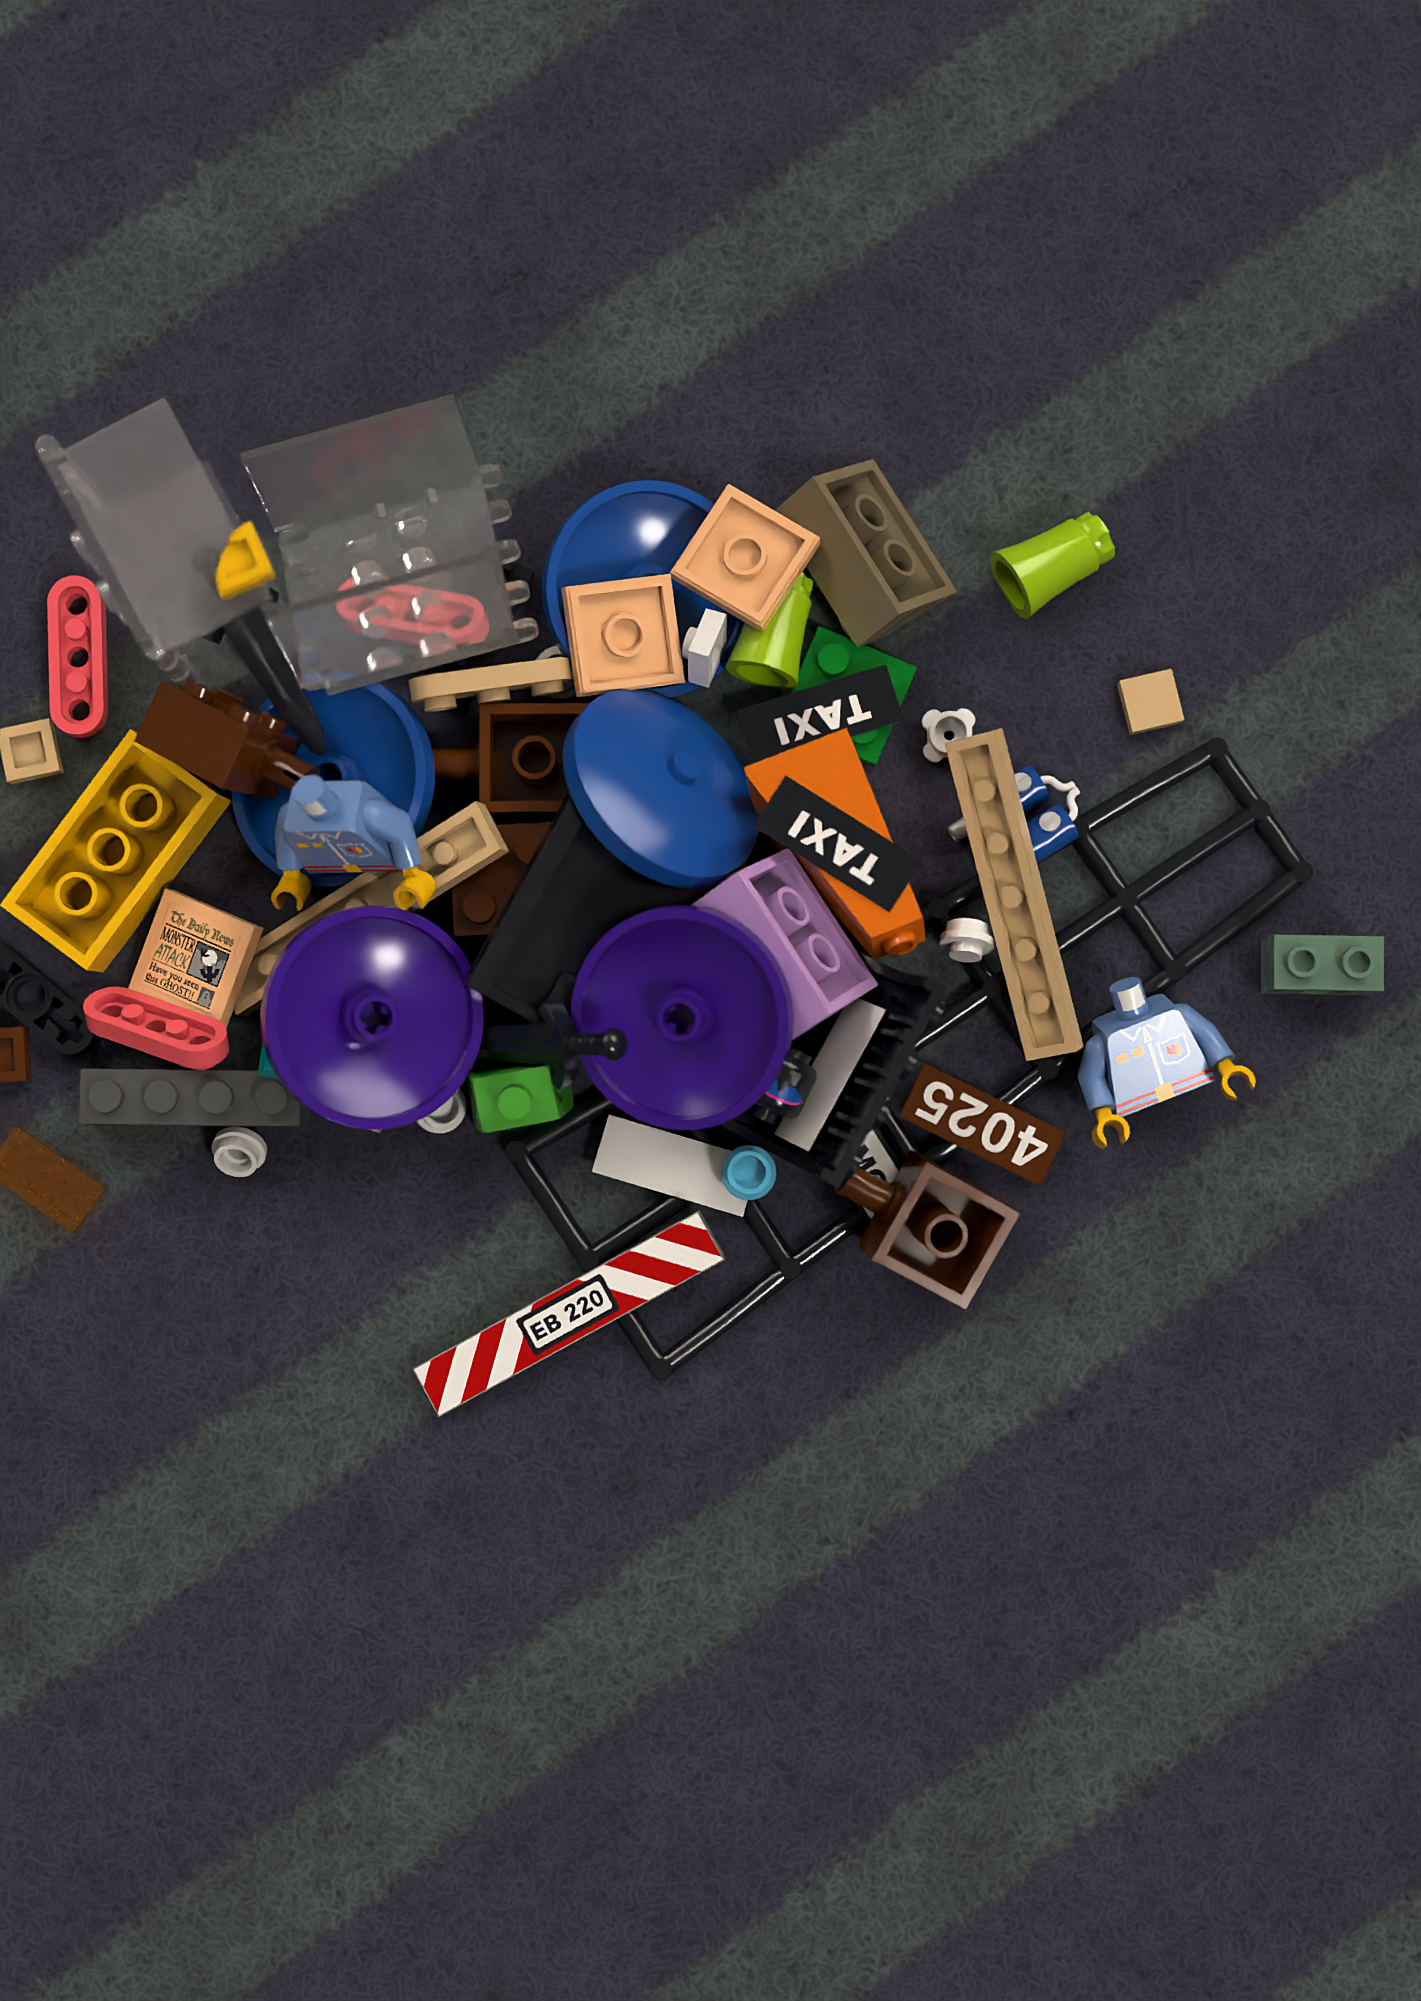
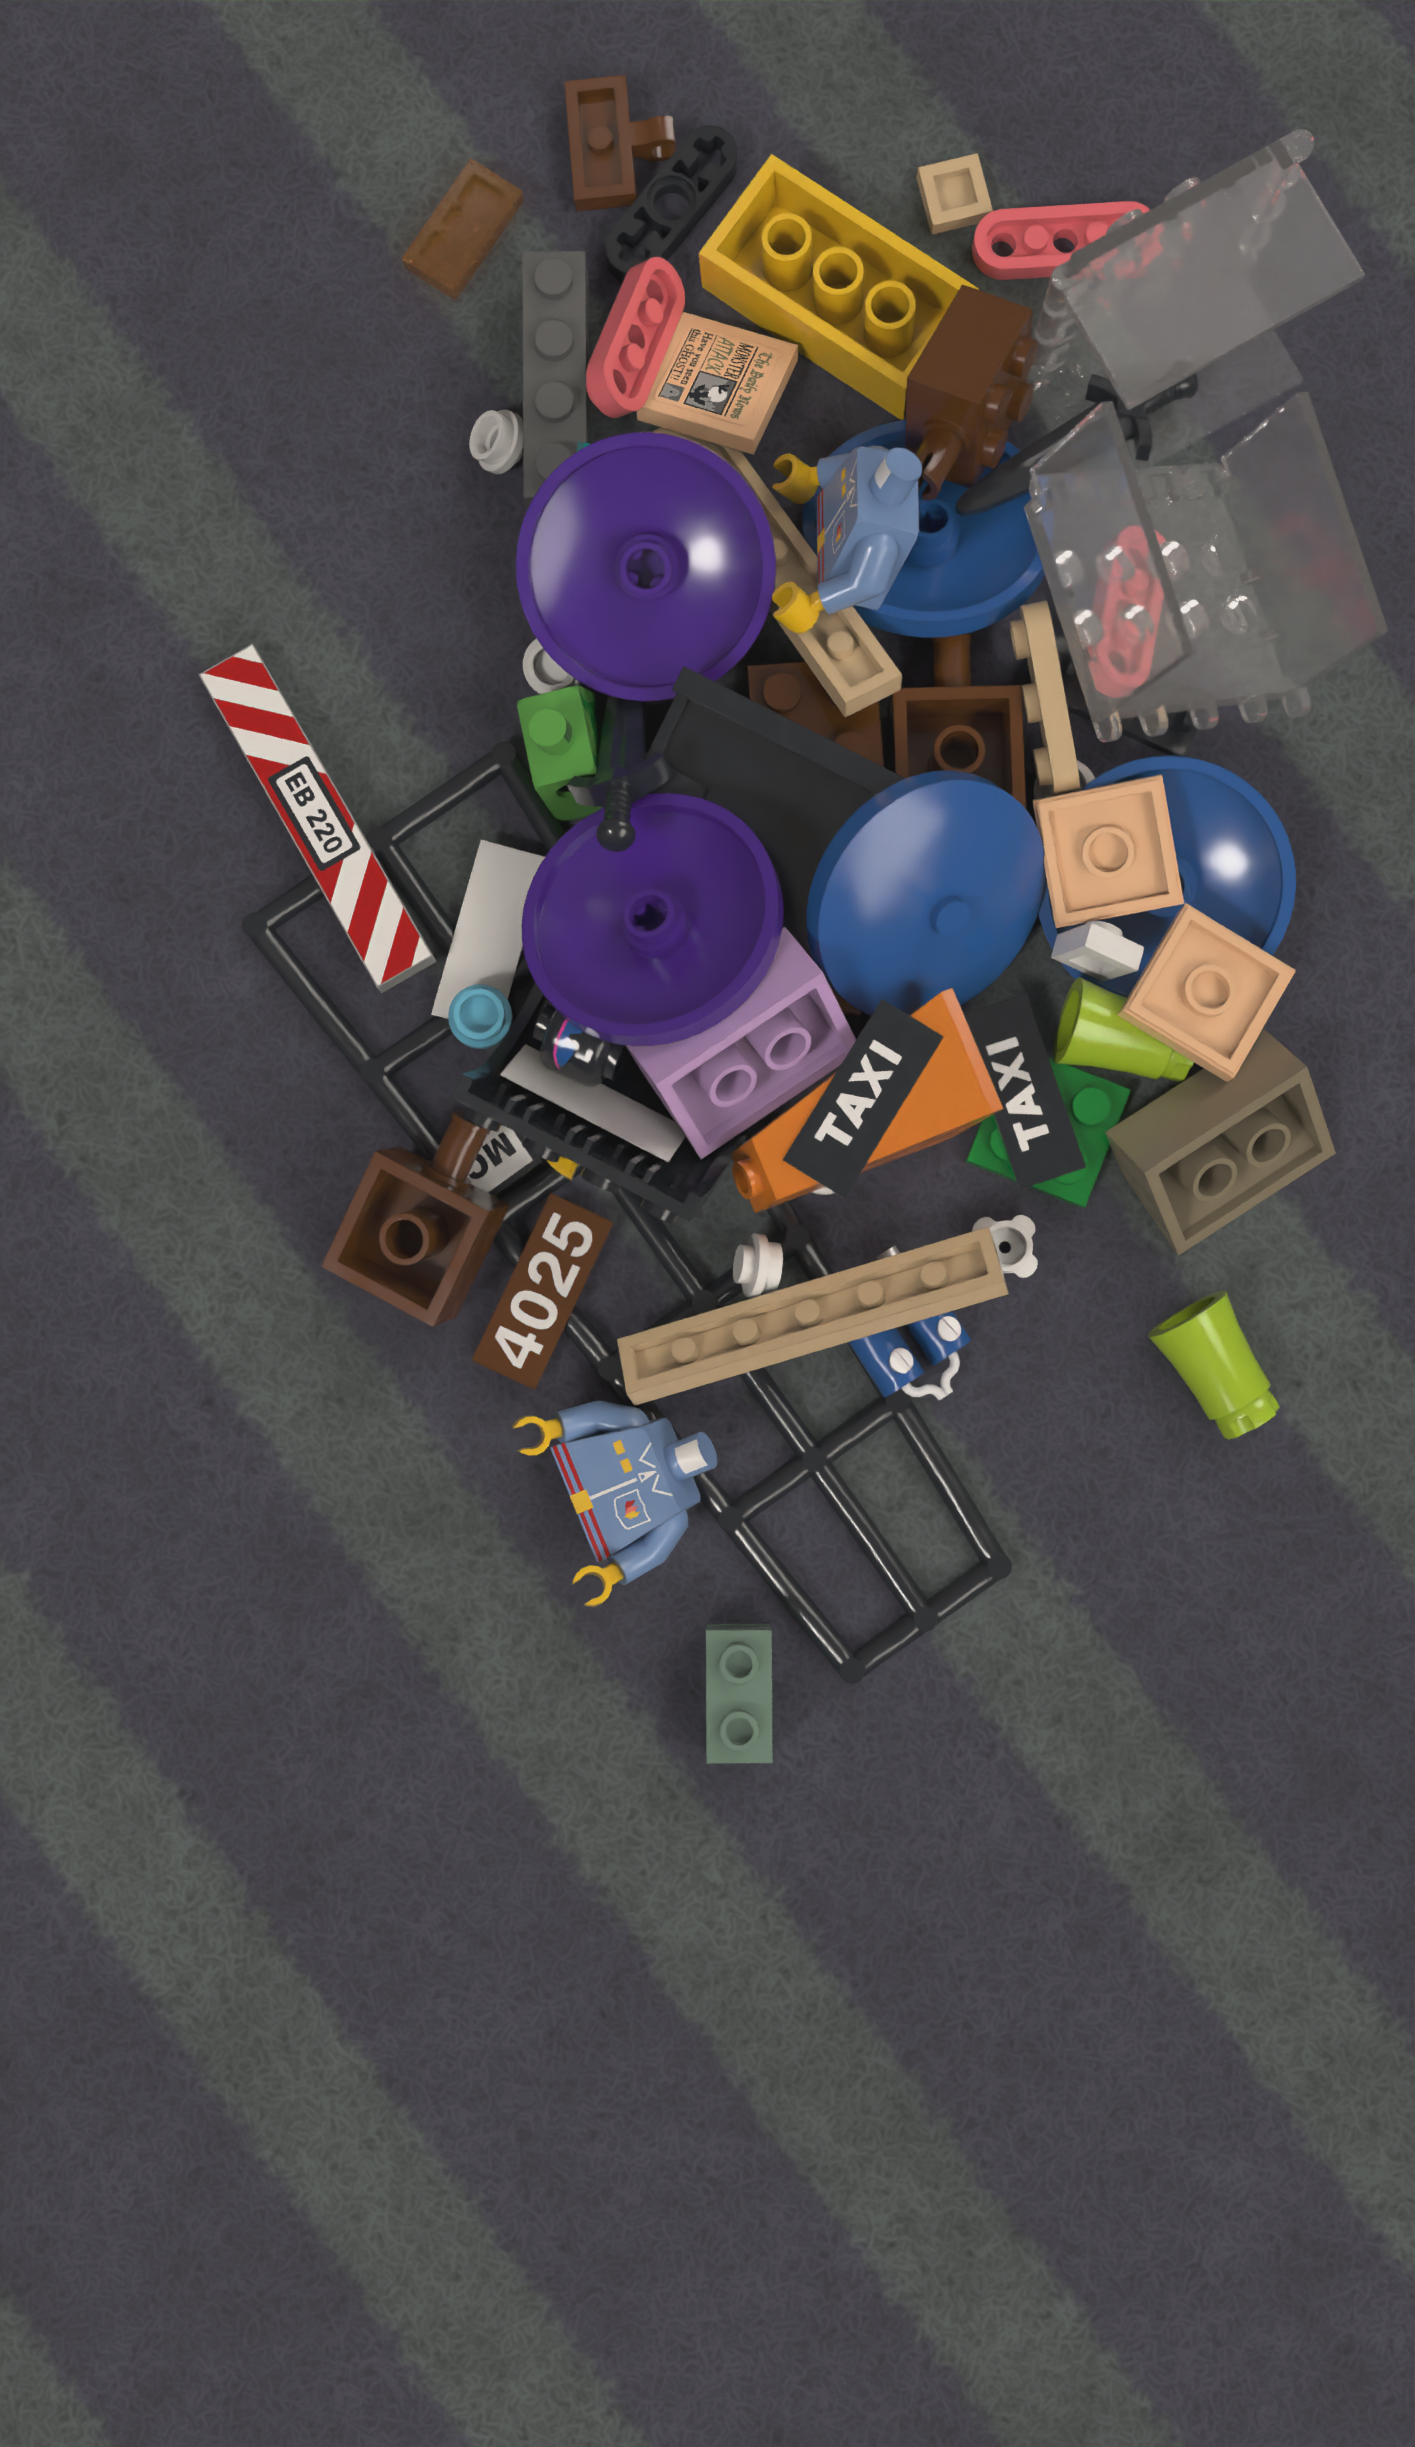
camera: 90 degrees right, 0 degrees up
(243, 563) = (1167, 369): yellow tile -> none
(1150, 701) = (1052, 1487): tan tile -> none

